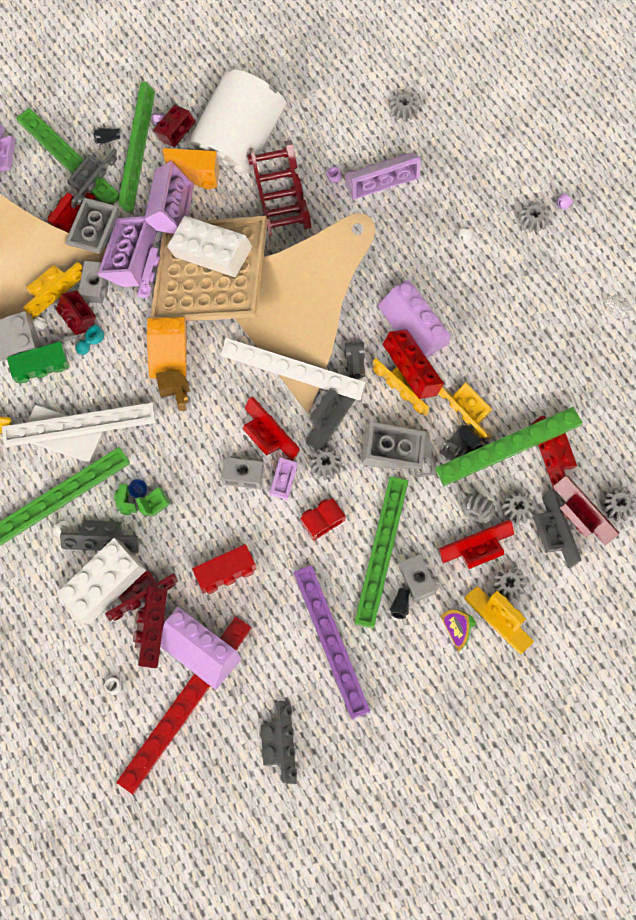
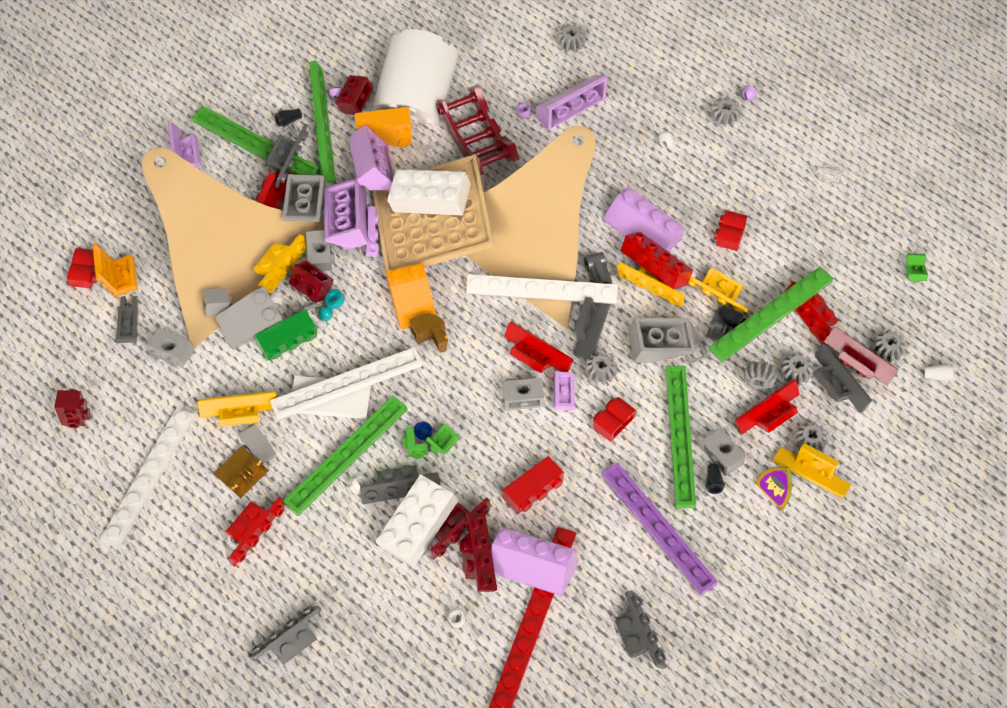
camera: 20 degrees left, 10 degrees down
(499, 346) = (731, 230): none -> red brick

